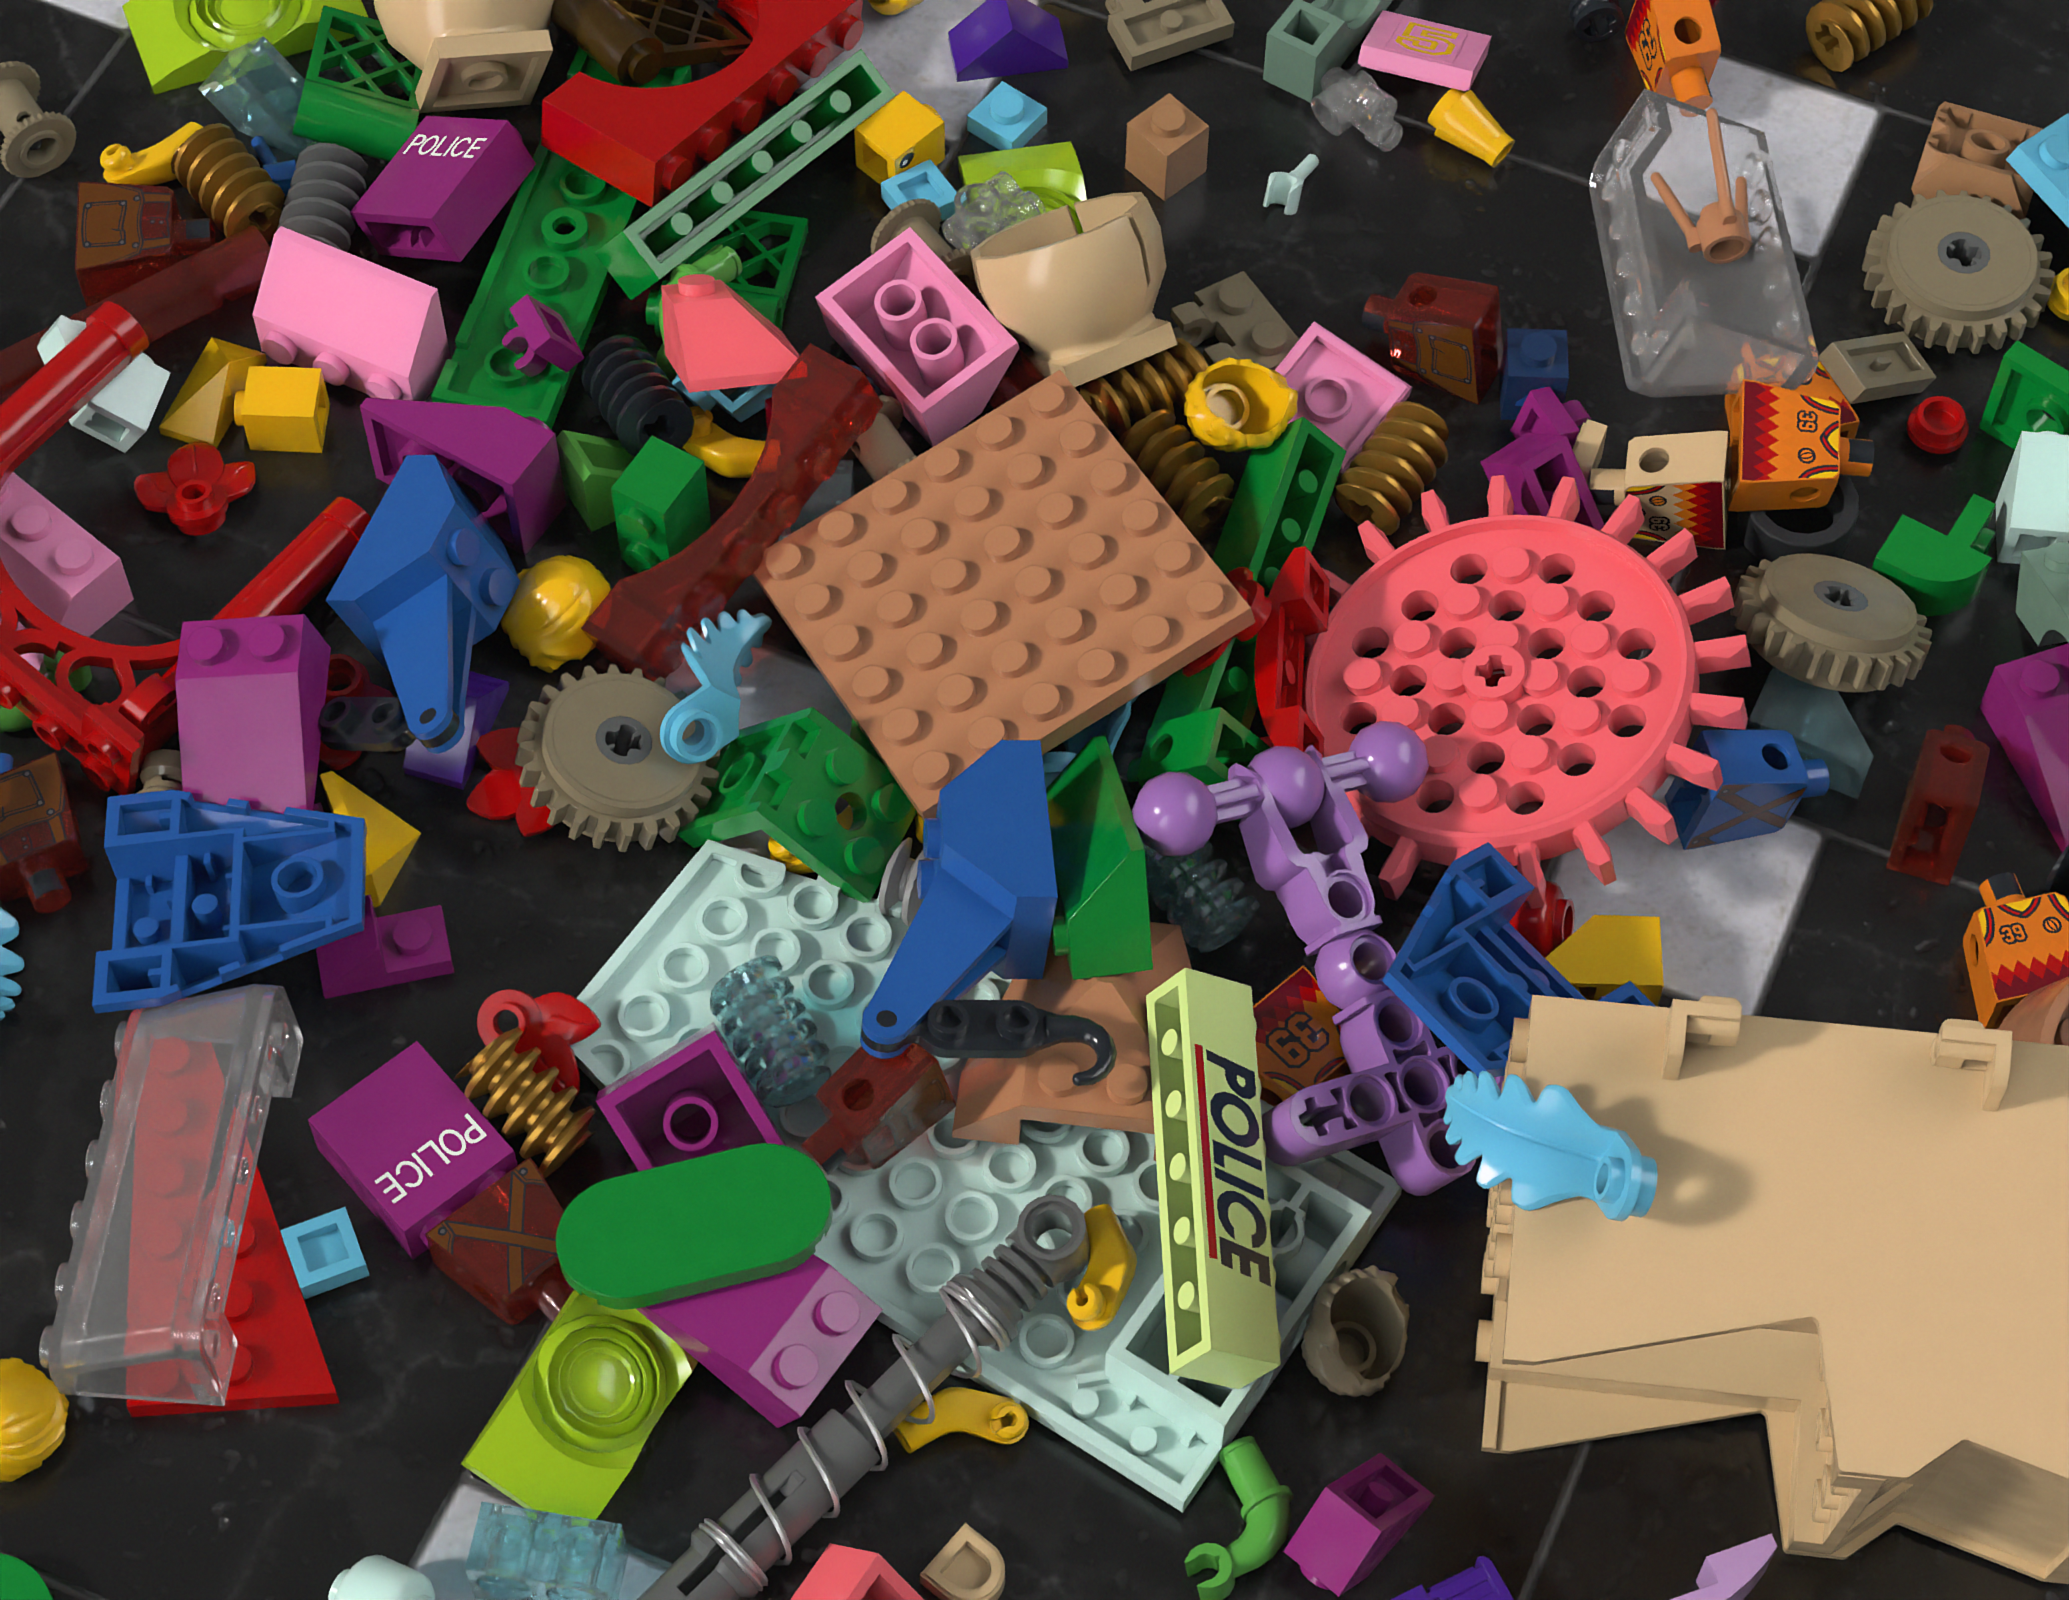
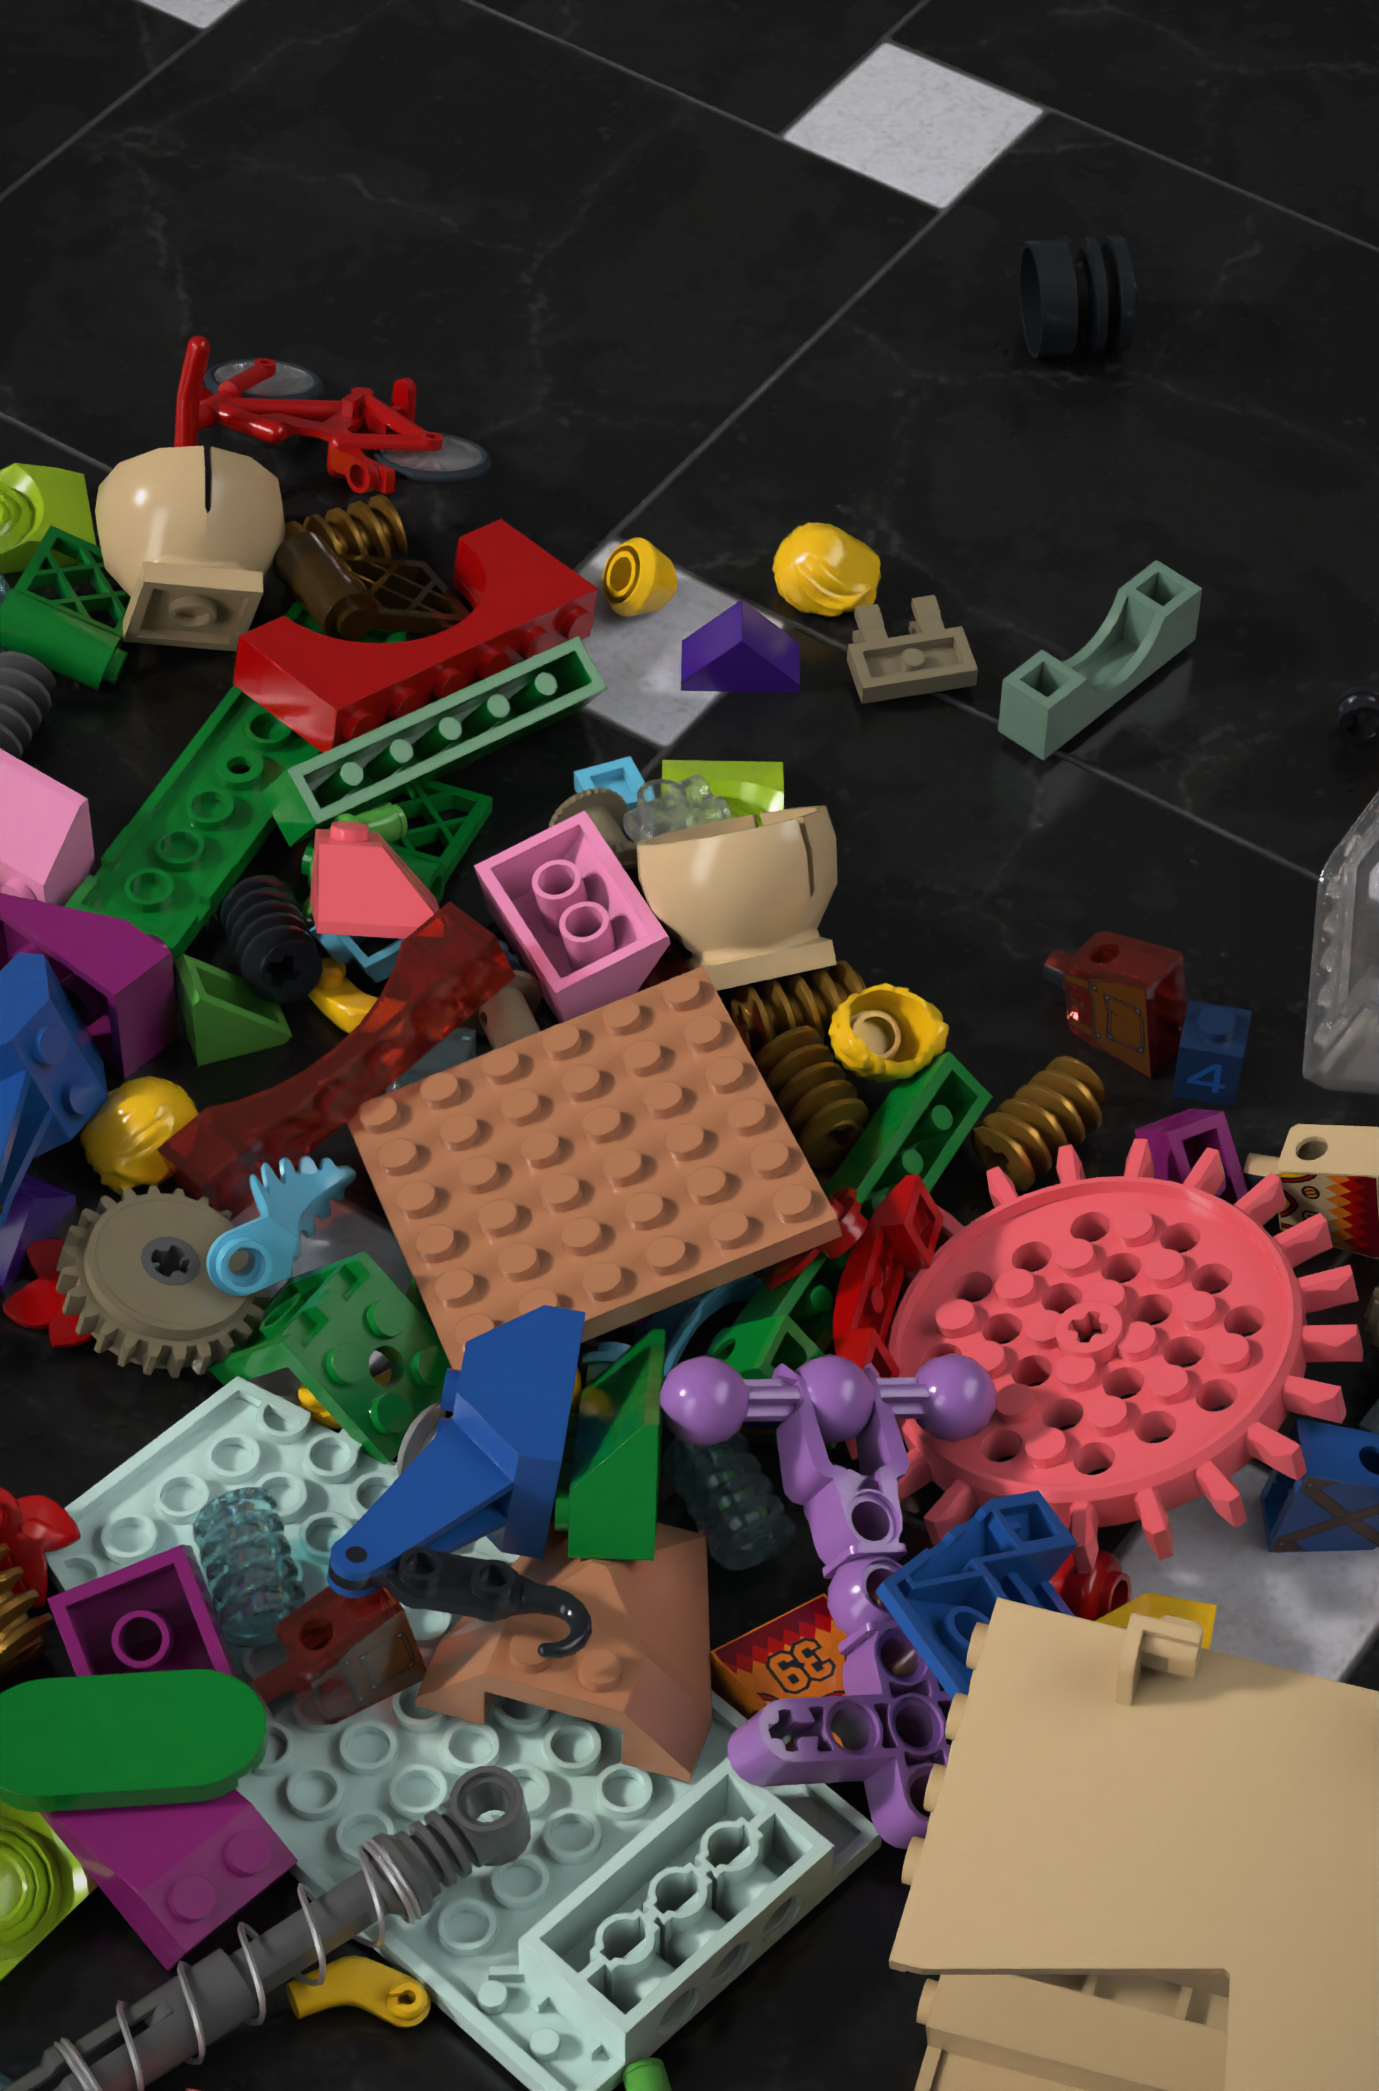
camera: 10 degrees right, 10 degrees down
(443, 188) = (126, 712): magenta brick -> none
(545, 337) = (185, 865): magenta tile -> none
(660, 504) = (264, 1036): green brick -> none
(899, 138) = (604, 730): yellow brick -> none
(1006, 118) = (722, 730): medium azure plate -> none
(1108, 1272) = (543, 1865): yellow arm -> none
(1167, 147) = (878, 779): medium nougat brick -> none
(1212, 1181) = (665, 1781): yellowish green brick -> none
(1240, 321) = (917, 959): dark tan plate -> none
(1287, 187) = (995, 837): light aqua hand -> none
(1340, 389) = (1001, 1037): bright pink tile -> none
(1356, 1332) = (793, 1968): dark tan hair -> none
(1359, 103) = (1090, 765): clear plate -> none
(1424, 50) = (1170, 723): bright pink tile -> none
(1469, 126) = (1201, 802): yellow cone -> none
(1546, 1147) = (974, 1748): medium azure plant -> none
(1547, 415) = (1214, 1091): magenta tile -> none
(1589, 447) = (1254, 1133): tan tile -> none

